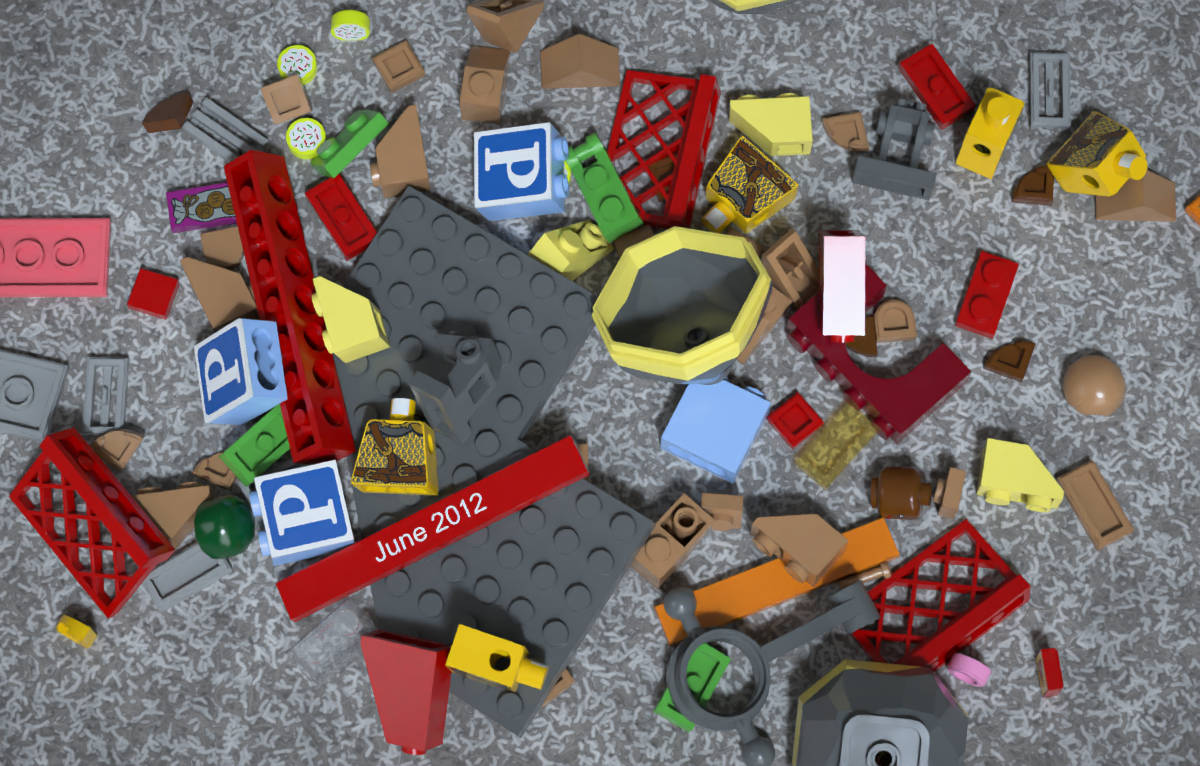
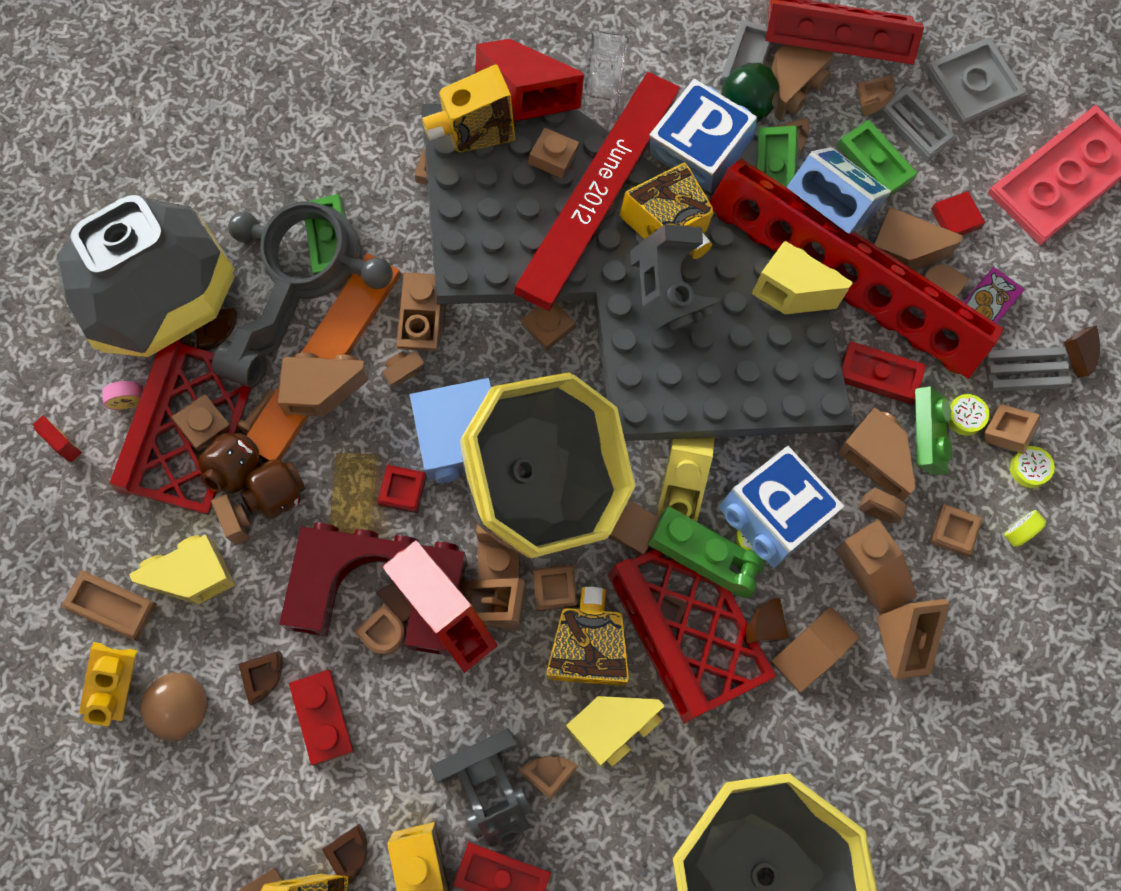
camera: 140 degrees right, 0 degrees up
(172, 389) = (877, 157): none -> bright green plate
(439, 121) = (882, 506): none -> medium nougat tile
(445, 591) = (553, 153): none -> medium nougat plate
(600, 106) = (767, 623): none -> reddish brown tile
(920, 591) = (201, 422): none -> medium nougat plate
(921, 535) = (228, 462): none -> reddish brown head
(1135, 430) = (107, 684): none -> yellow hips

